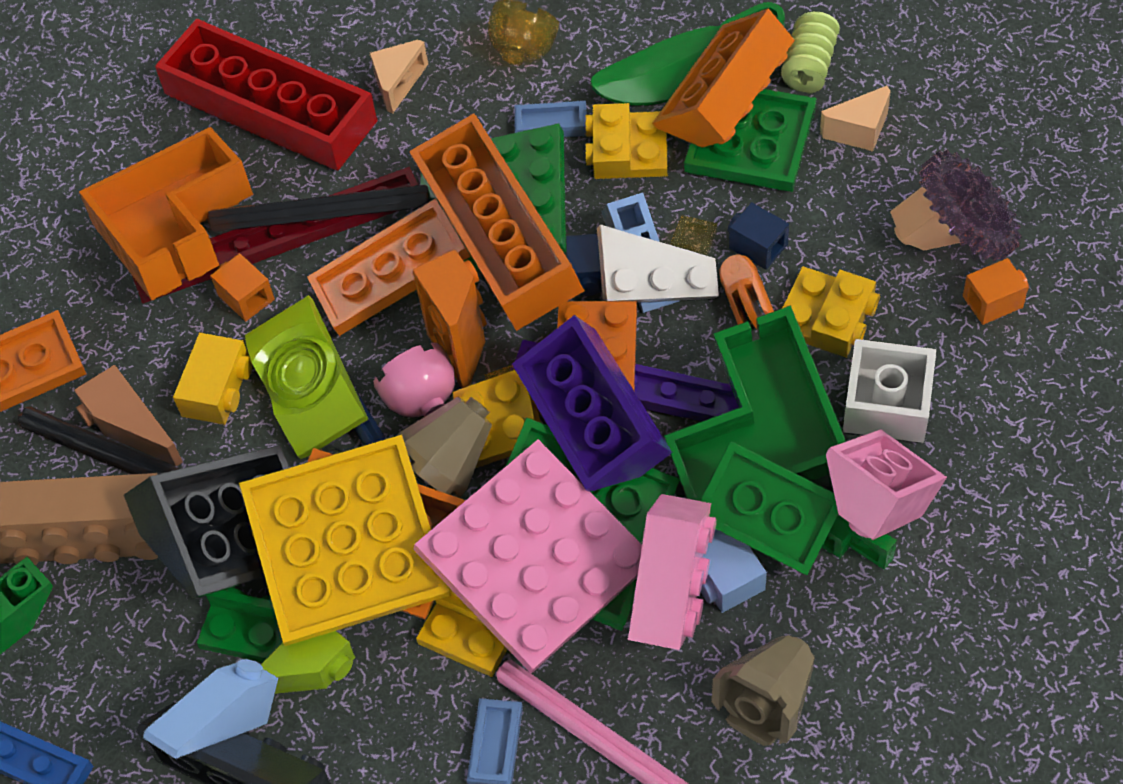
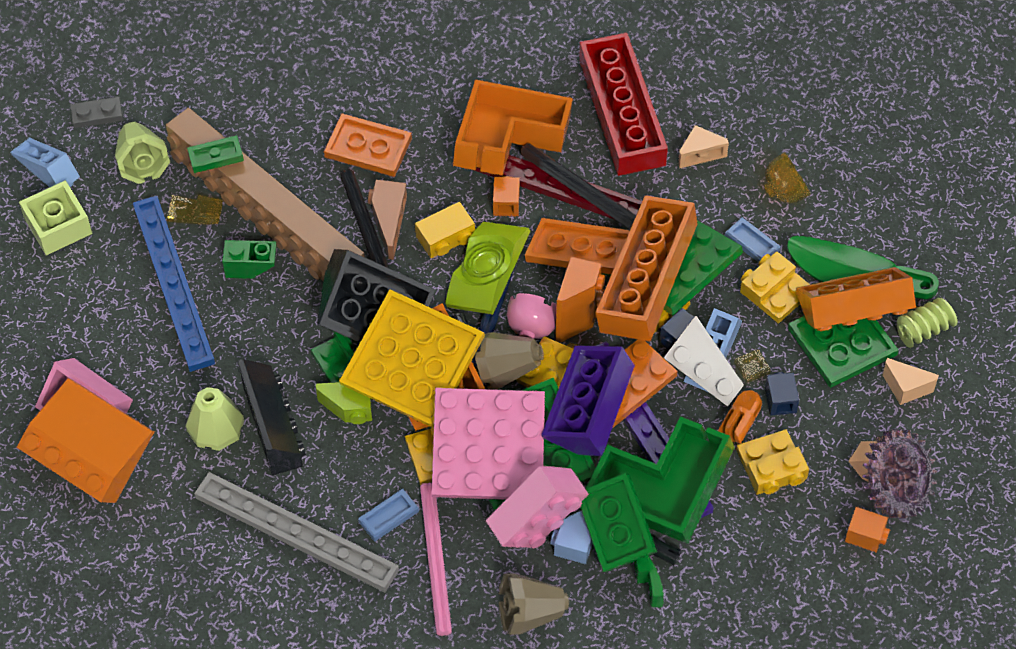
camera: 40 degrees right, 0 degrees up
(218, 708) = (283, 384): light blue slope -> none
(880, 483) = (683, 560): bright pink slope -> none
(889, 390) = (749, 526): white brick -> none

